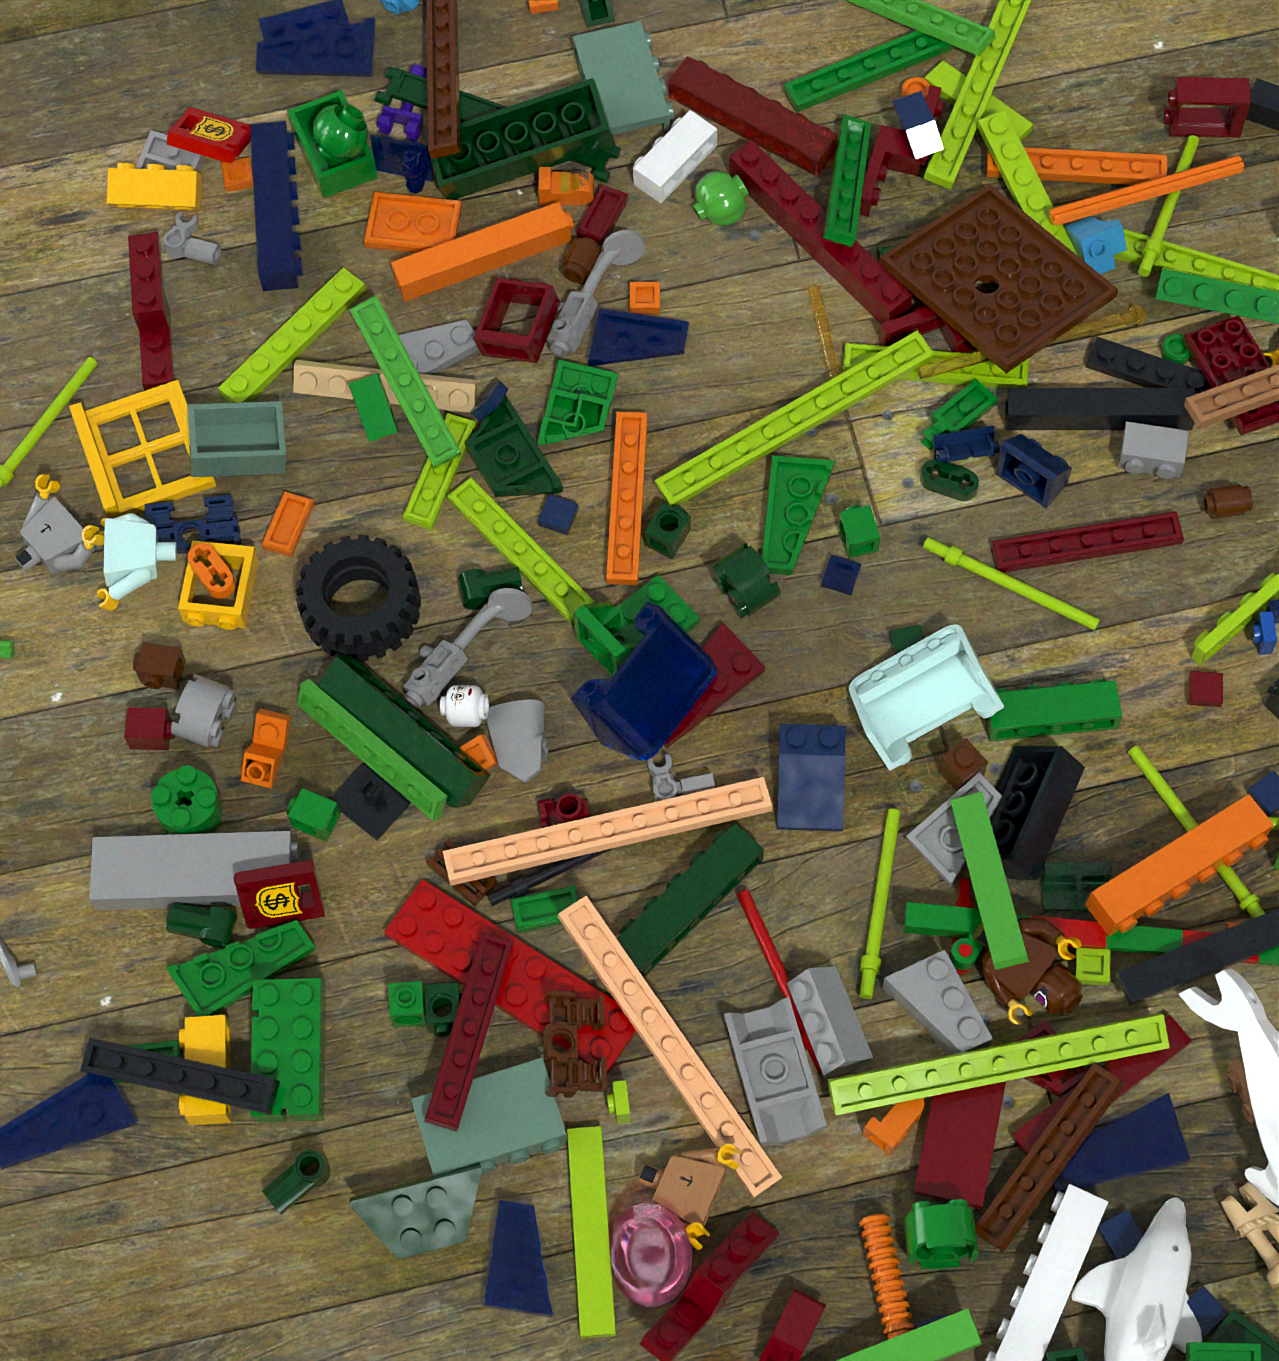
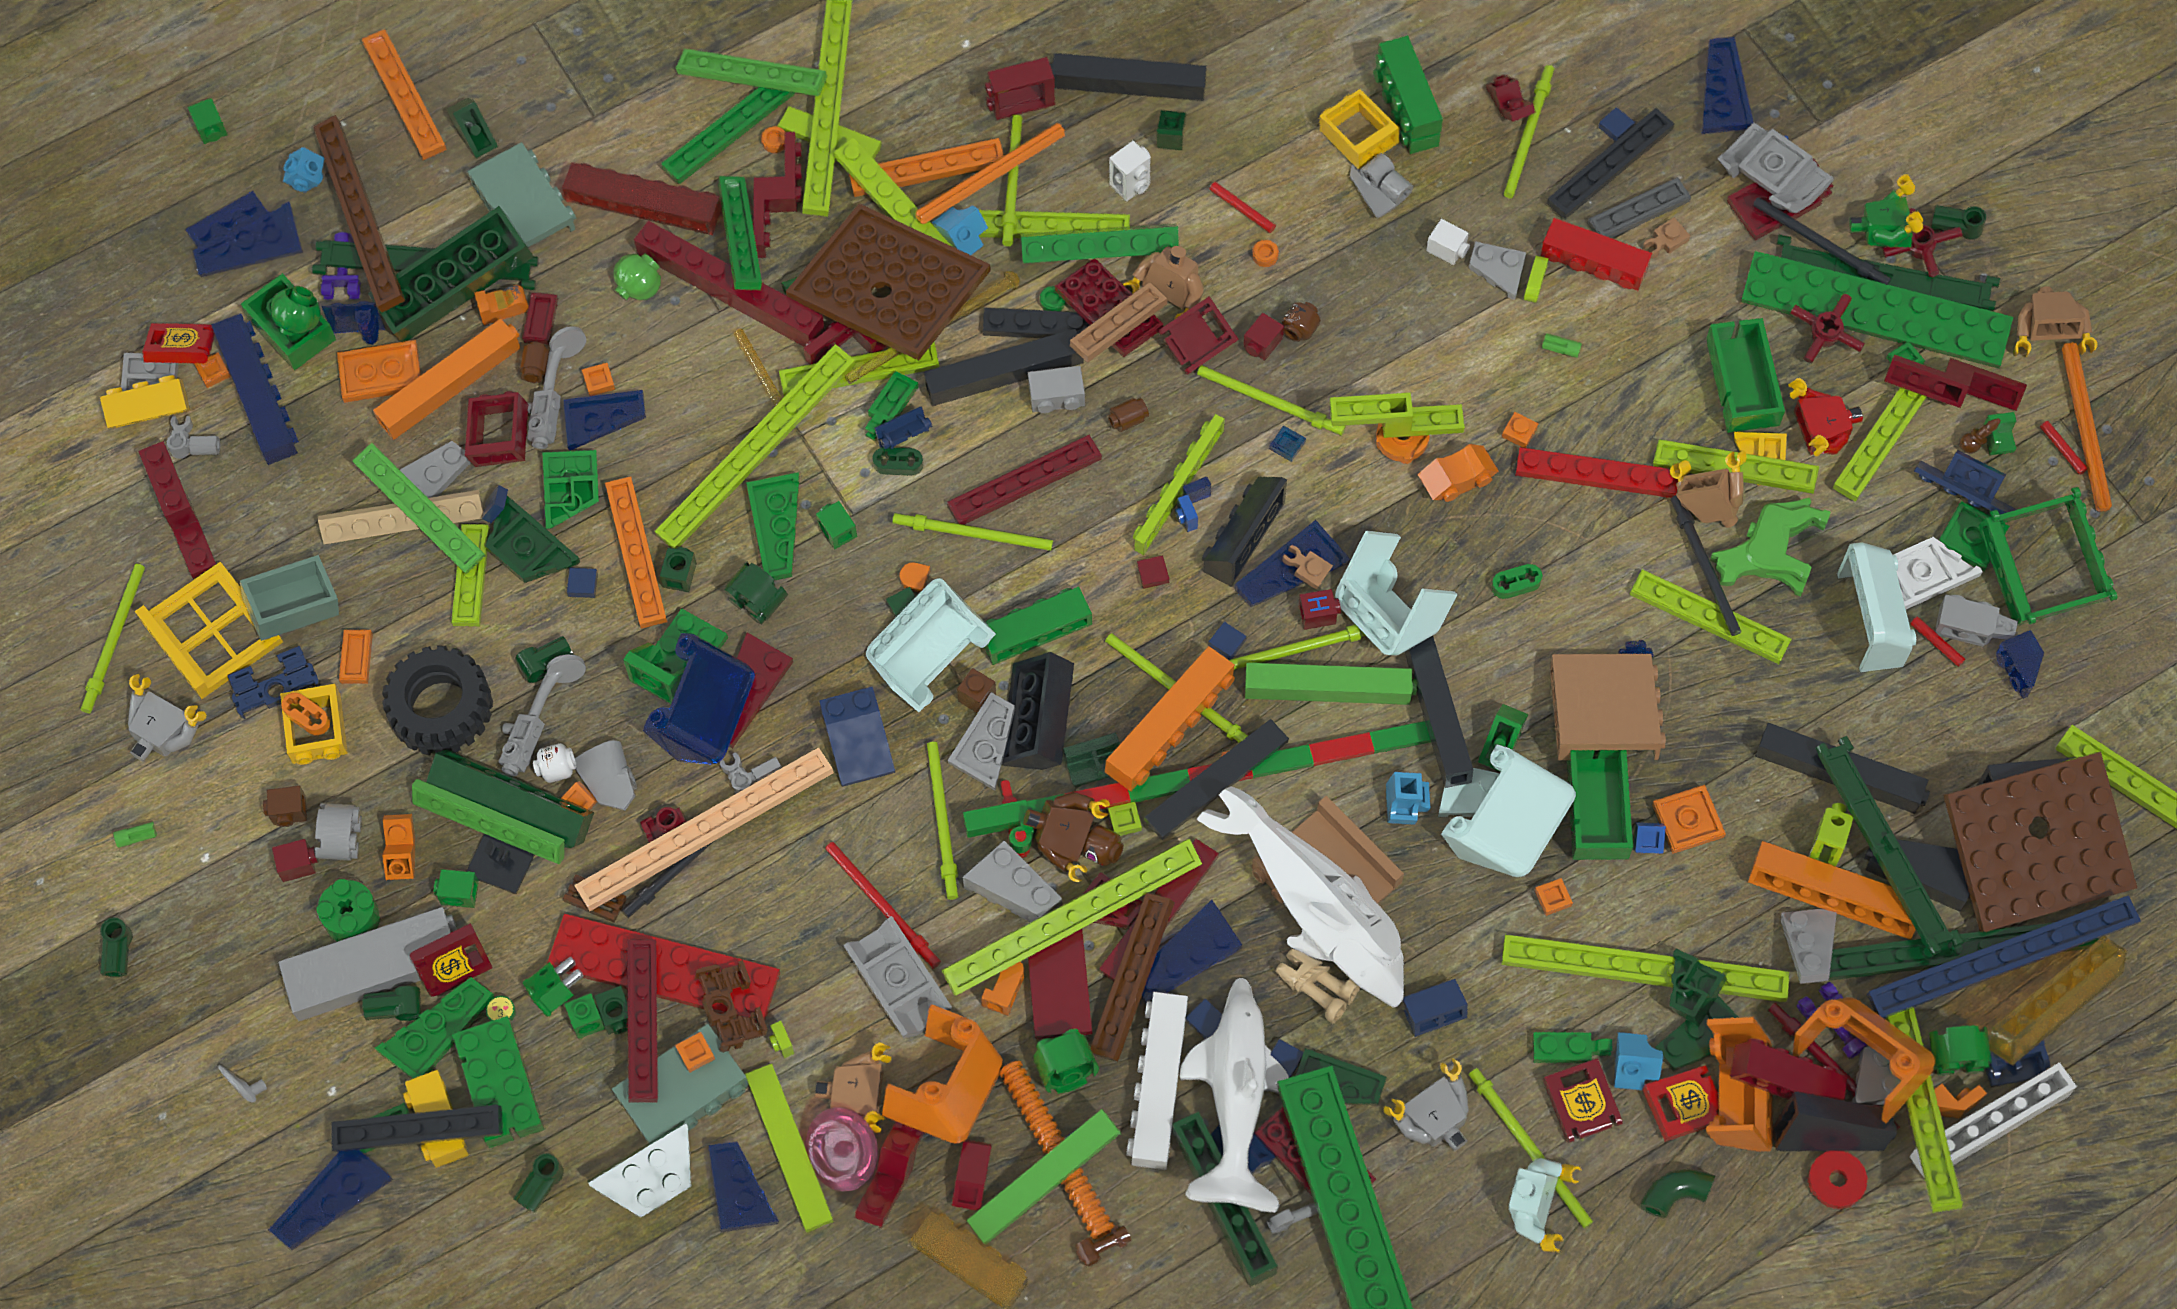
camera: 20 degrees left, 0 degrees up
(130, 556) = (231, 722): light aqua torso -> none
(292, 338) = (307, 498): lime plate -> none
(318, 965) = (500, 1007): none -> light yellow tile
(373, 407) = (398, 537): green tile -> none
(378, 960) = (549, 988): none -> green piece
(516, 1087) = (695, 1052): none -> orange plate
(519, 549) = (558, 621): lime tile -> none
(542, 908) = (673, 906): green tile -> none
(668, 1044) = (804, 981): light nougat plate -> none
(674, 156) = (586, 251): white brick -> none
(689, 898) = (781, 874): dark green brick -> none
(793, 1251) = (951, 1108): none -> orange windscreen
(830, 1020) = (929, 924): light grey brick -> none
(841, 575) = (832, 564): clear blue tile -> none
(918, 124) = (784, 170): dark blue slope -> none
(930, 614) = (914, 576): none -> orange tile
(989, 881) = (1022, 775): bright green tile -> none
(1032, 469) = (963, 433): dark blue slope -> none

